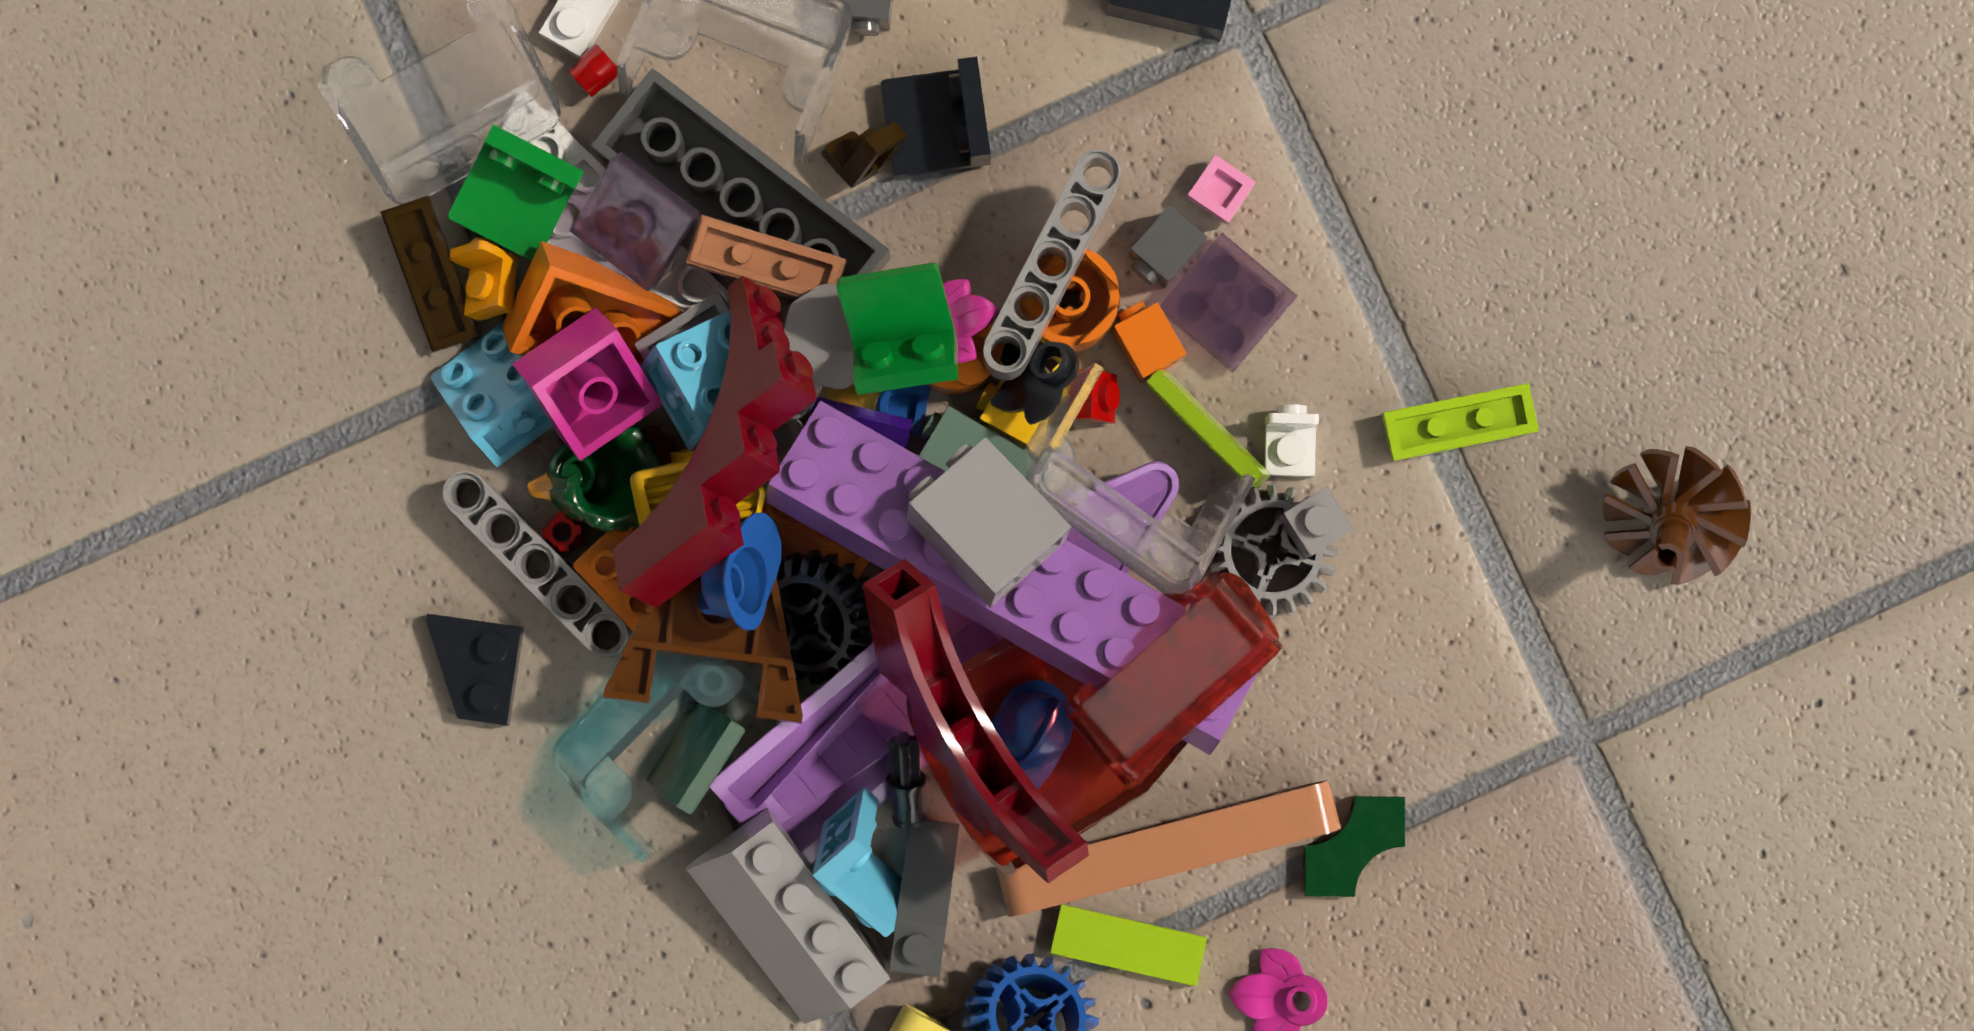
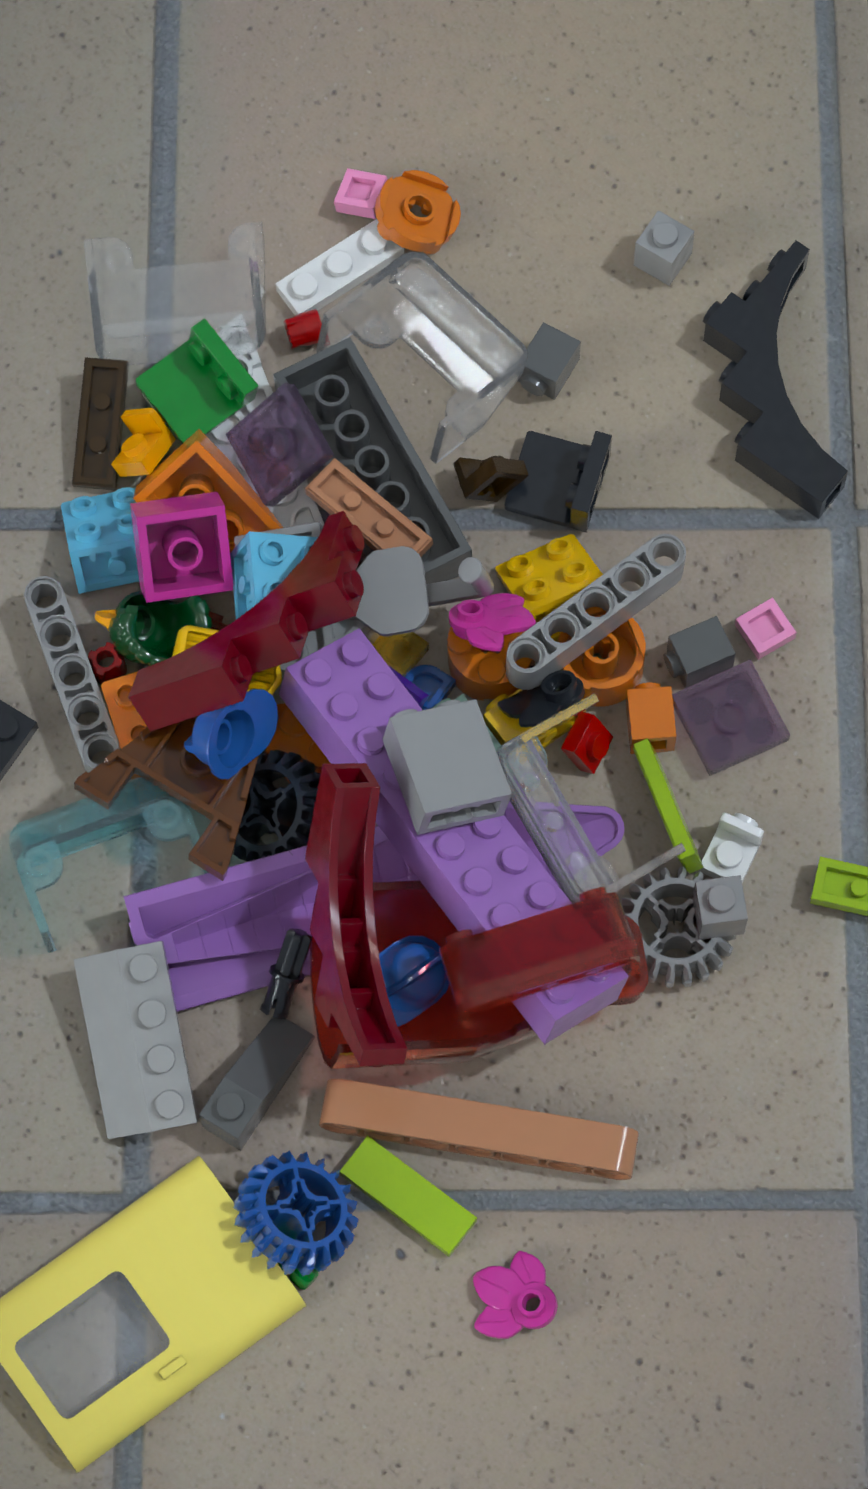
camera: 30 degrees right, 15 degrees down
(695, 756) = (126, 876): dark green tile -> none
(851, 870) = (206, 1021): medium azure bracket -> none
(899, 328) = (449, 593): green bracket -> none
(982, 238) = (549, 575): none -> yellow bracket
(1370, 829) = (655, 1194): dark green tile -> none

